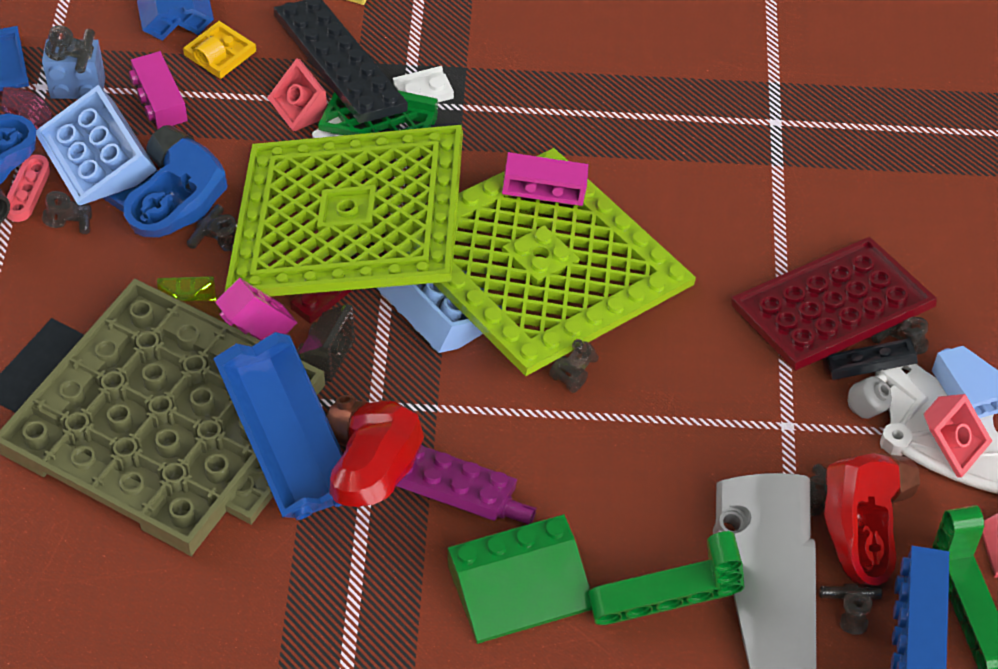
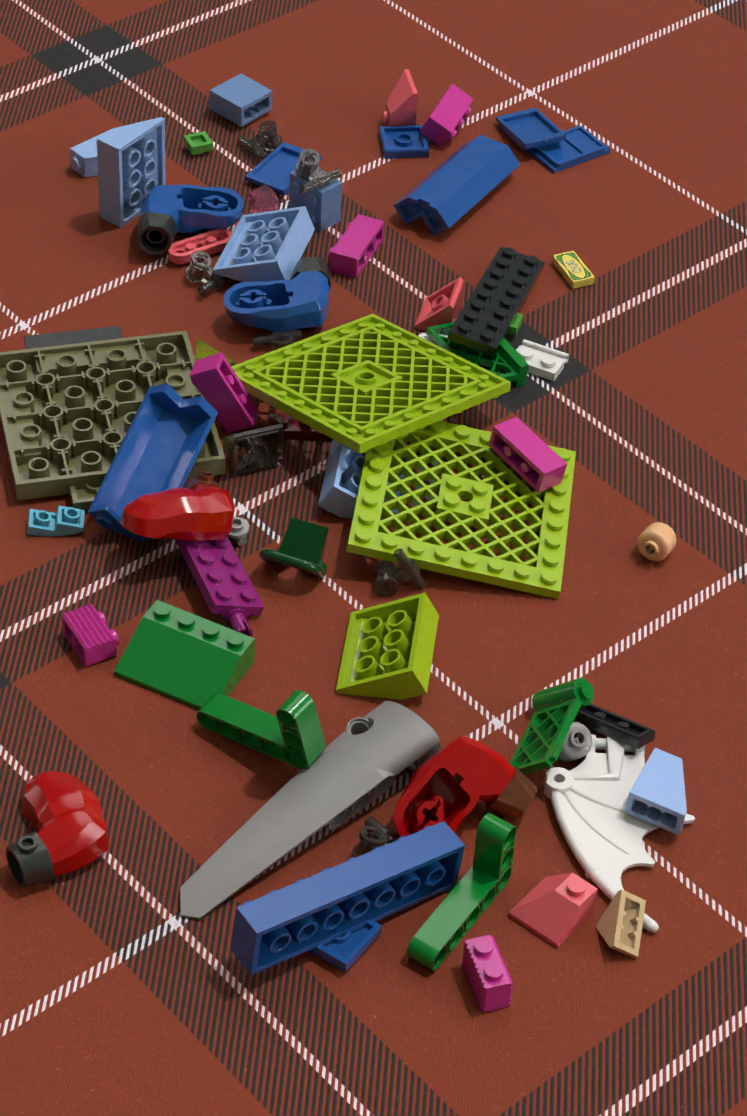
camera: 45 degrees right, 10 degrees down
(219, 49) = (431, 249): yellow plate -> none
(253, 547) = (63, 522): none -> medium azure slope
(422, 627) = (89, 634): none -> dark pink brick
(474, 397) = (301, 548): none -> dark green piece
(649, 435) = (389, 649): none -> lime slope
(707, 179) = (657, 541): none -> light nougat head
(831, 368) = (557, 709): none -> green piece
(833, 303) = (637, 672): dark red plate -> none
(910, 328) = (667, 730): clear smoke piece -> none
(957, 431) = (595, 805): coral slope -> none

